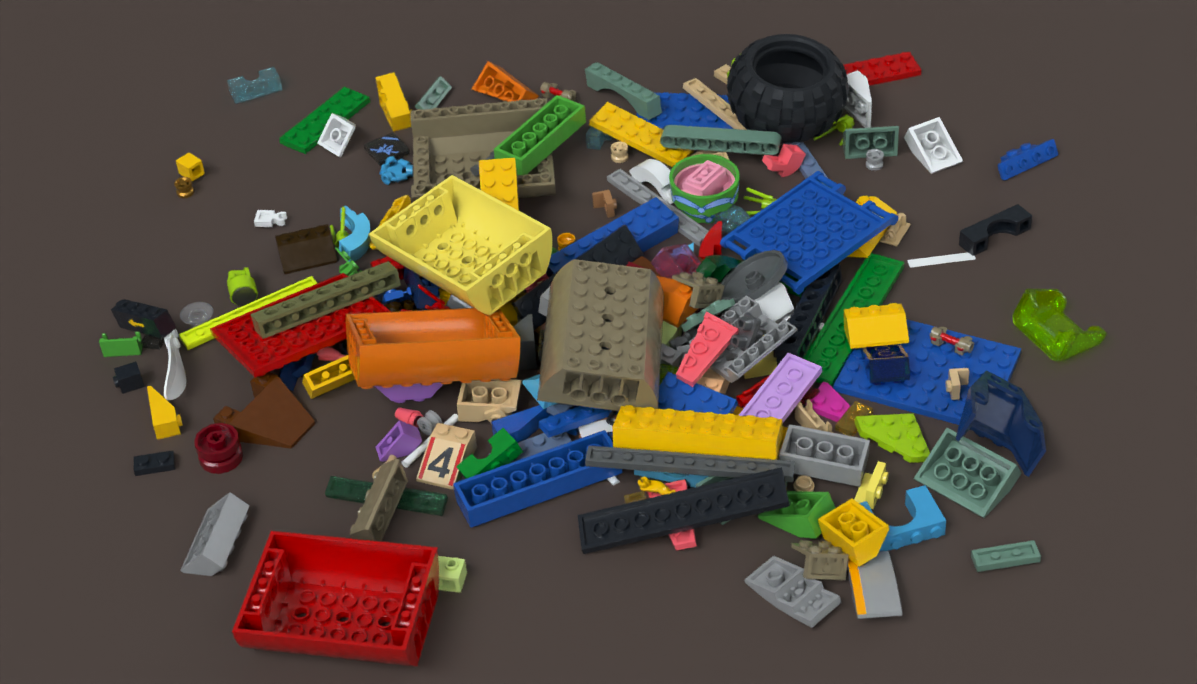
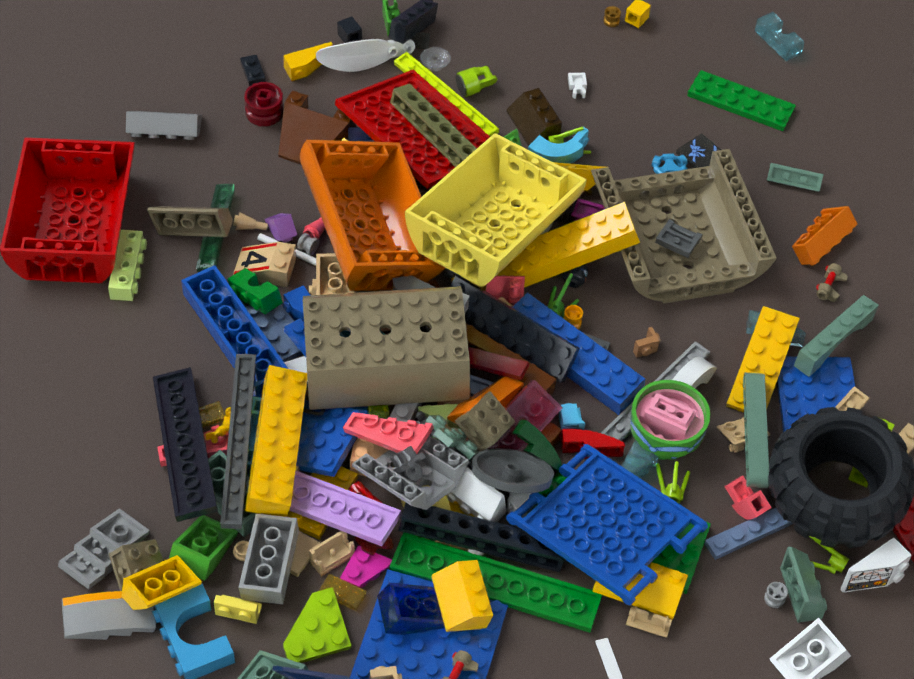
camera: 75 degrees right, 10 degrees up
(336, 134) = (714, 111): white slope -> none
(393, 102) = (770, 146): yellow wedge -> none
(542, 133) = (714, 261): bright green brick -> none
(619, 152) = (741, 344): tan wheel -> none

